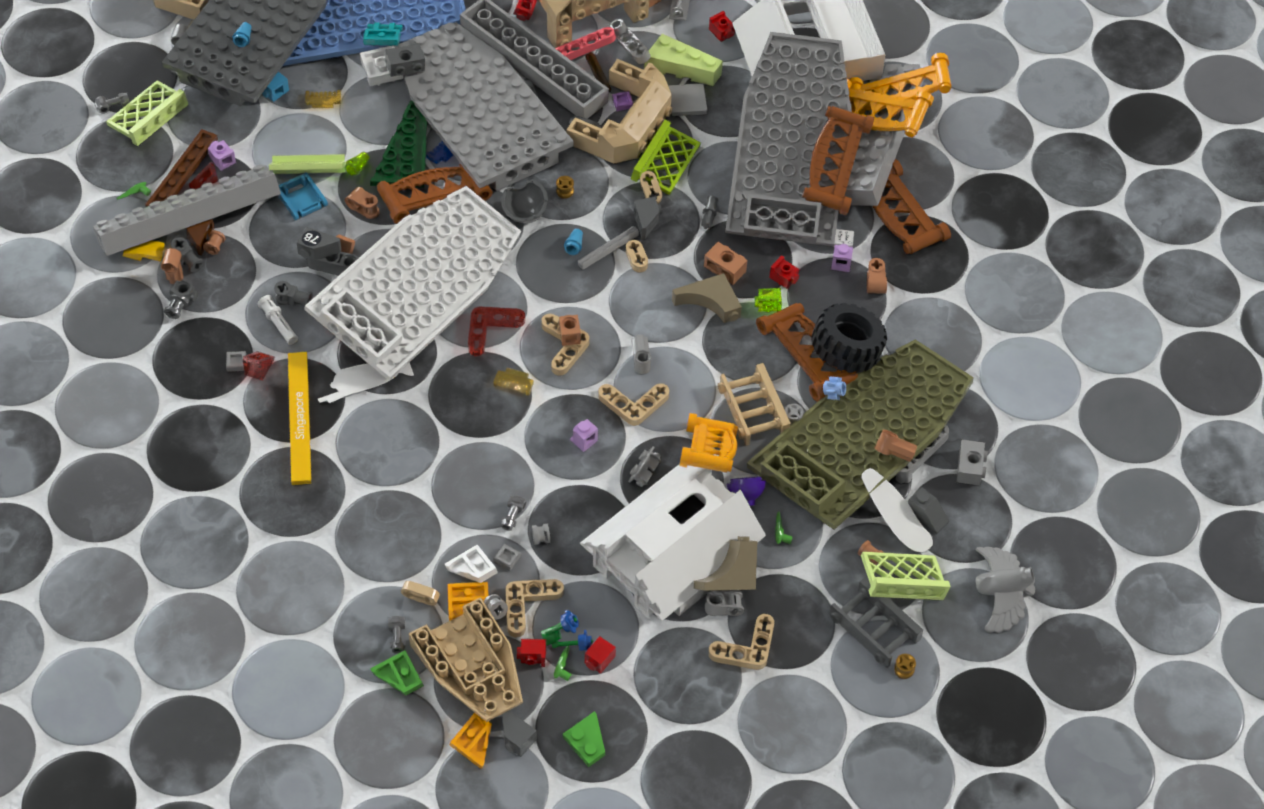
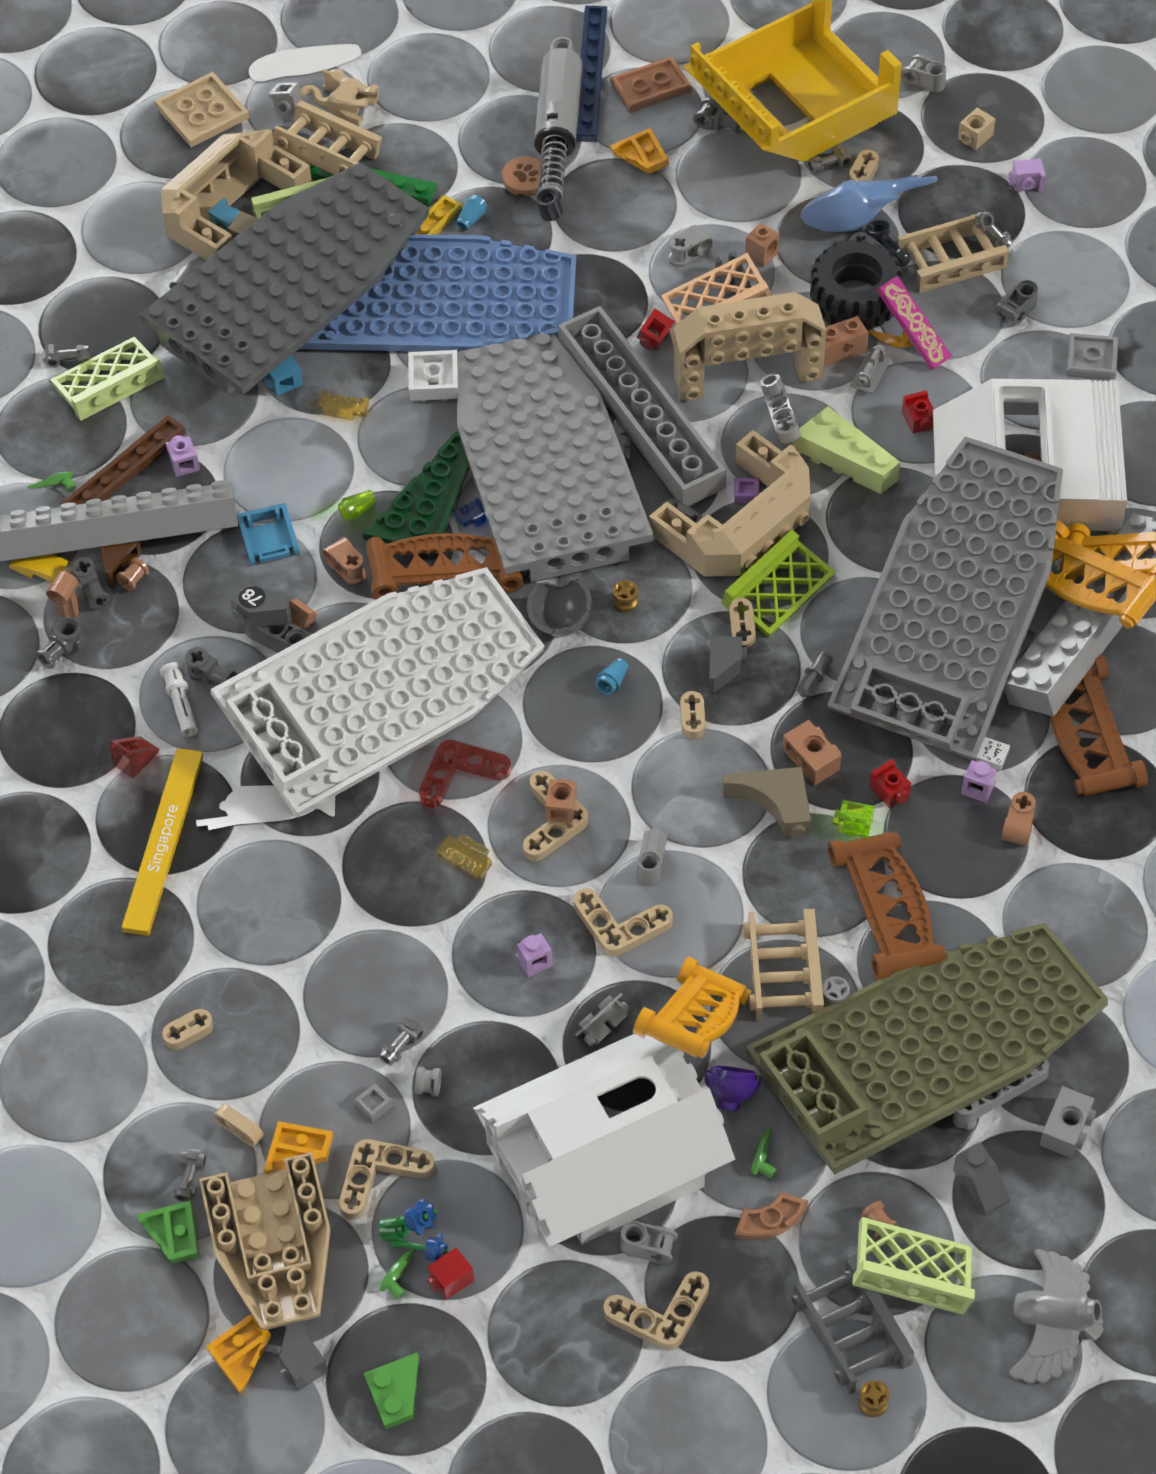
camera: 20 degrees right, 0 degrees up
(207, 175) = (152, 481): clear red slope -> none
(234, 361) = (101, 742): light grey tile -> none
(242, 35) = (253, 298): dark azure cone -> none
(308, 163) = (288, 491): yellowish green fence -> none
(363, 540) = (187, 1029): none -> tan beam
(382, 34) = (446, 332): teal plate -> none
(404, 60) = (462, 374): dark grey brick -> none
(472, 565) = (320, 1103): white wing -> none
(496, 606) = (325, 1164): light grey wheel -> none
(532, 651) = (360, 1246): red brick -> none
(583, 45) = (716, 399): coral beam -> none
(597, 70) = (725, 442): dark brown axle -> none
(608, 247) = (656, 695): light grey axle -> none
(688, 99) = (837, 507): light grey tile -> none
(737, 569) = (676, 1201): dark tan arch -> none
(799, 570) = (771, 1220): none -> nougat tile
(834, 388) = (902, 968): light blue gear -> none
(847, 354) = (933, 921): black tyre -> none
(853, 126) = (991, 689): dark orange piece -> none
(890, 443) = (951, 1070): nougat piece -> none
(897, 512) = (934, 1171): white sticker -> none

